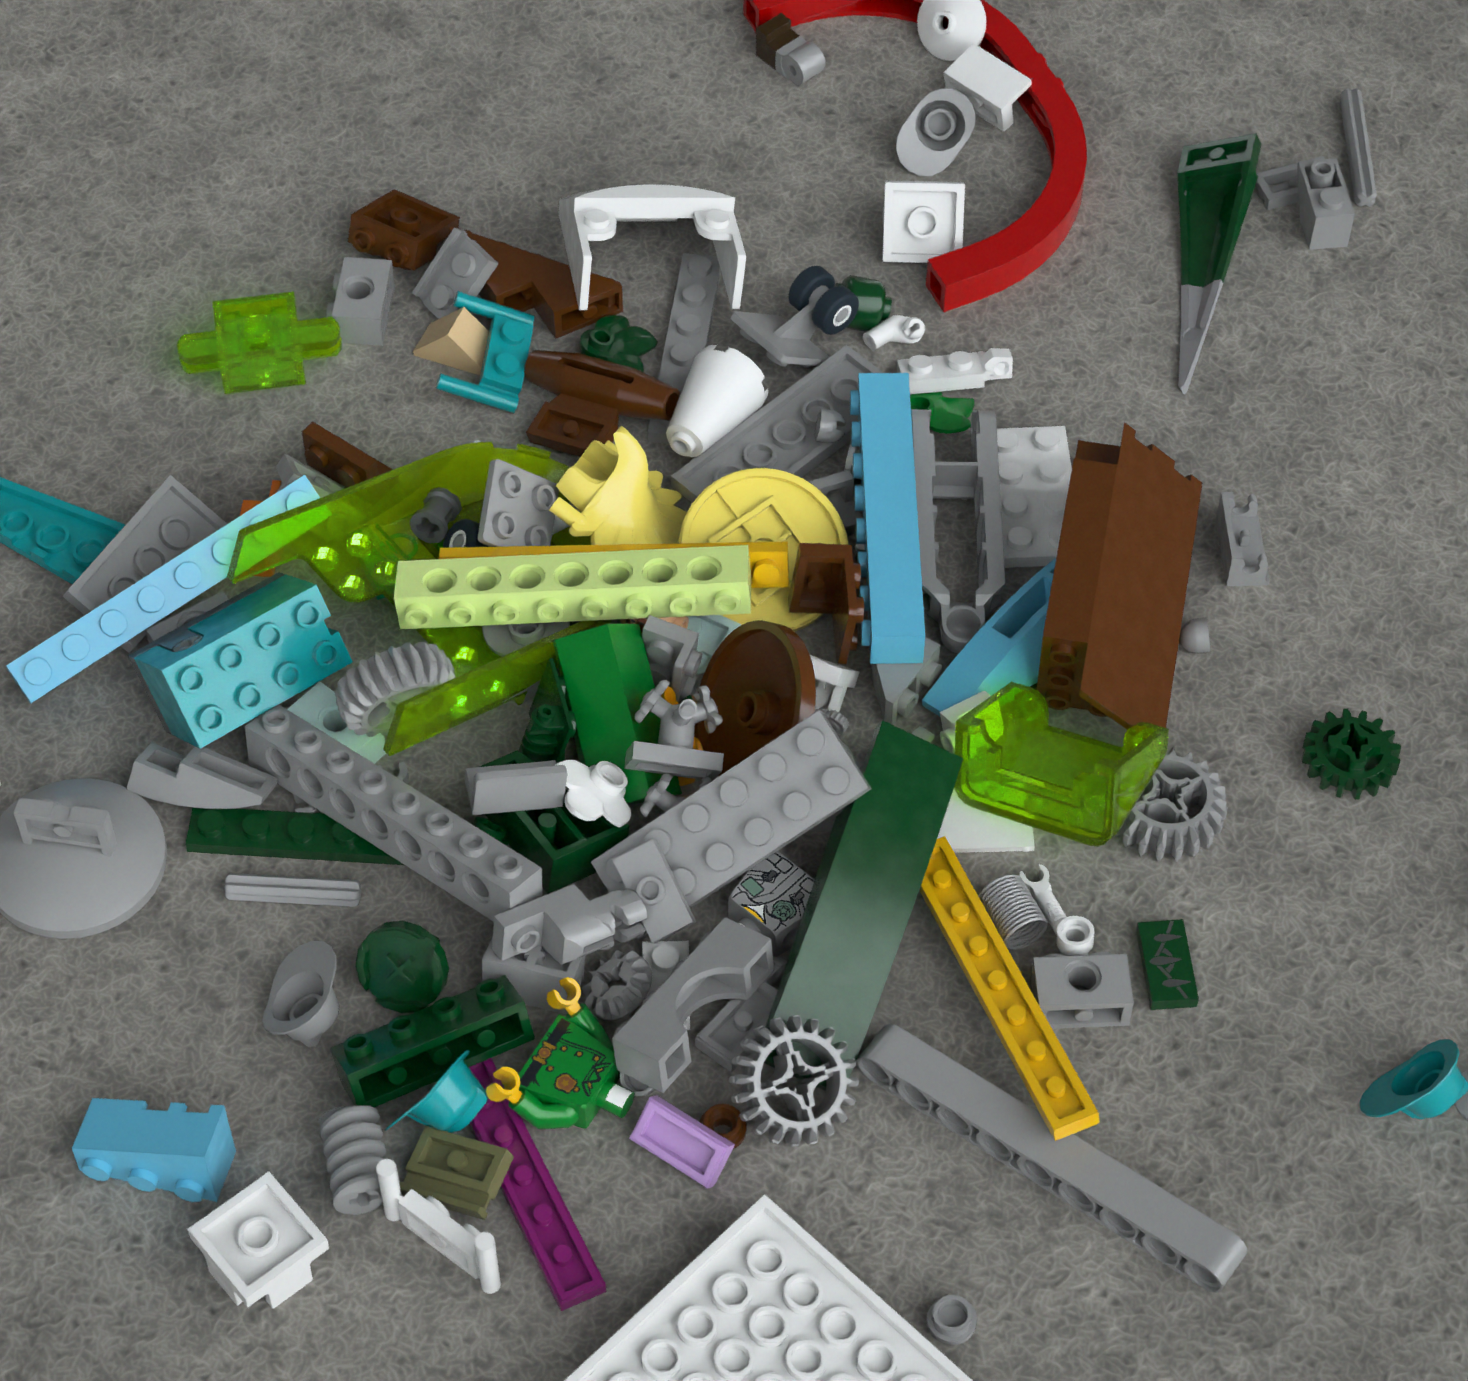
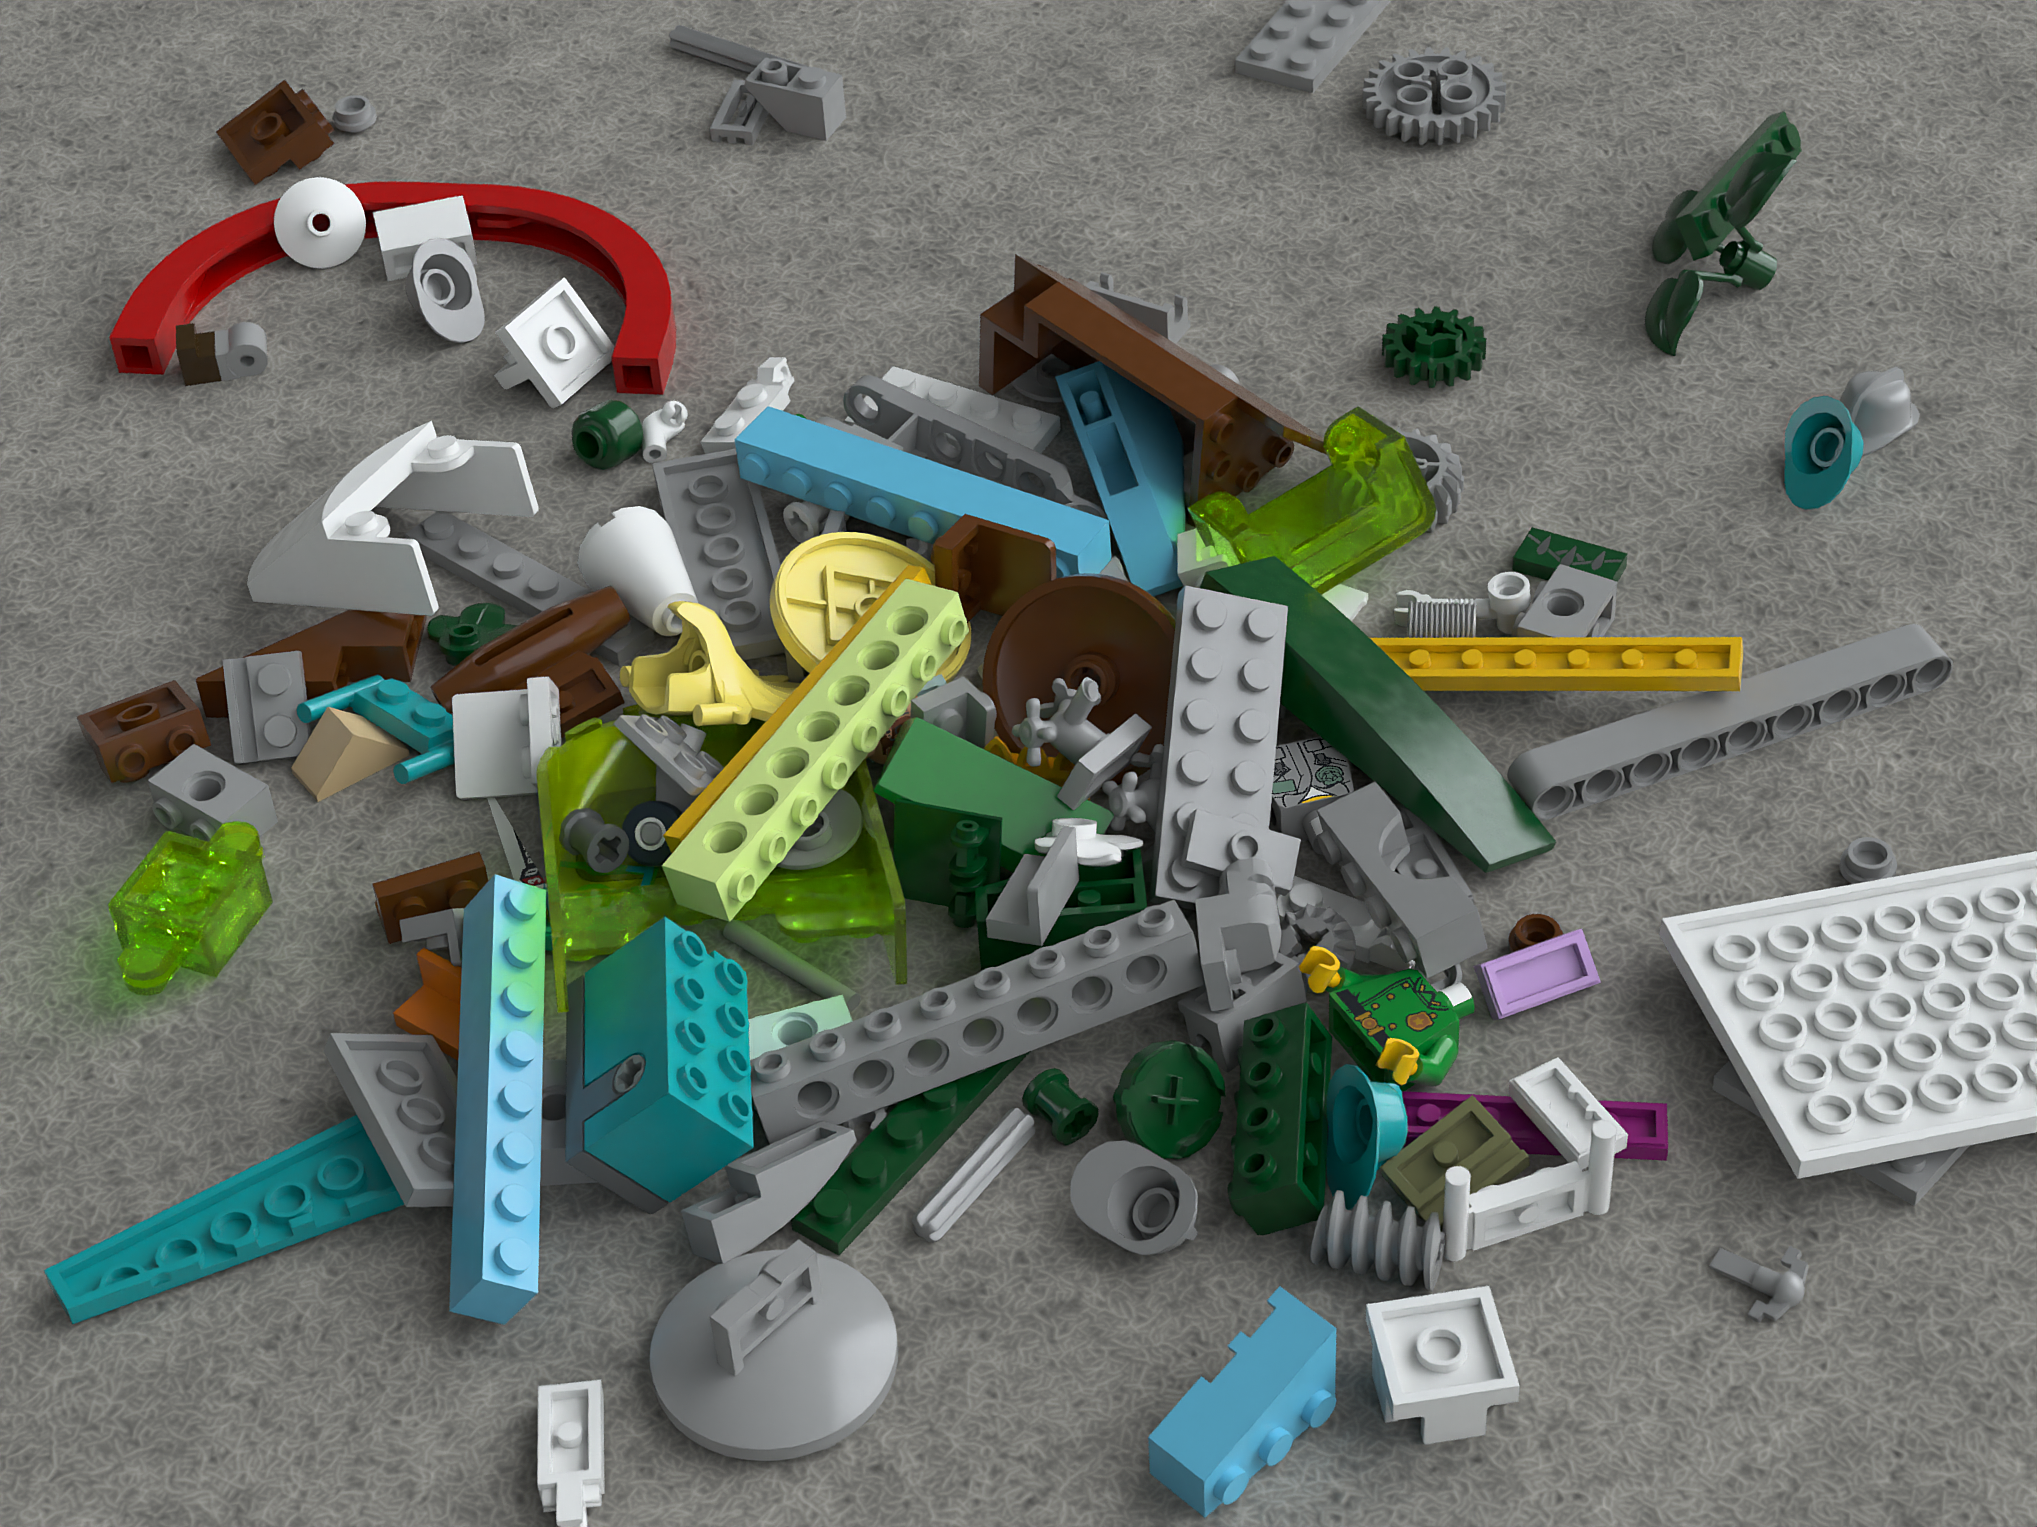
camera: 55 degrees left, 10 degrees down
(376, 905) = (1060, 1106): none -> dark green bush
(380, 683) = (841, 927): light grey gear -> none
(511, 413) = (503, 738): none -> white bracket
(538, 1220) = (1562, 1109): none -> white plate
(801, 1097) = (1539, 848): light grey gear -> none
(819, 306) = (580, 445): plate -> none
(826, 426) = (749, 499): light grey hinge -> none
(1213, 200) = (721, 159): dark green plate -> none

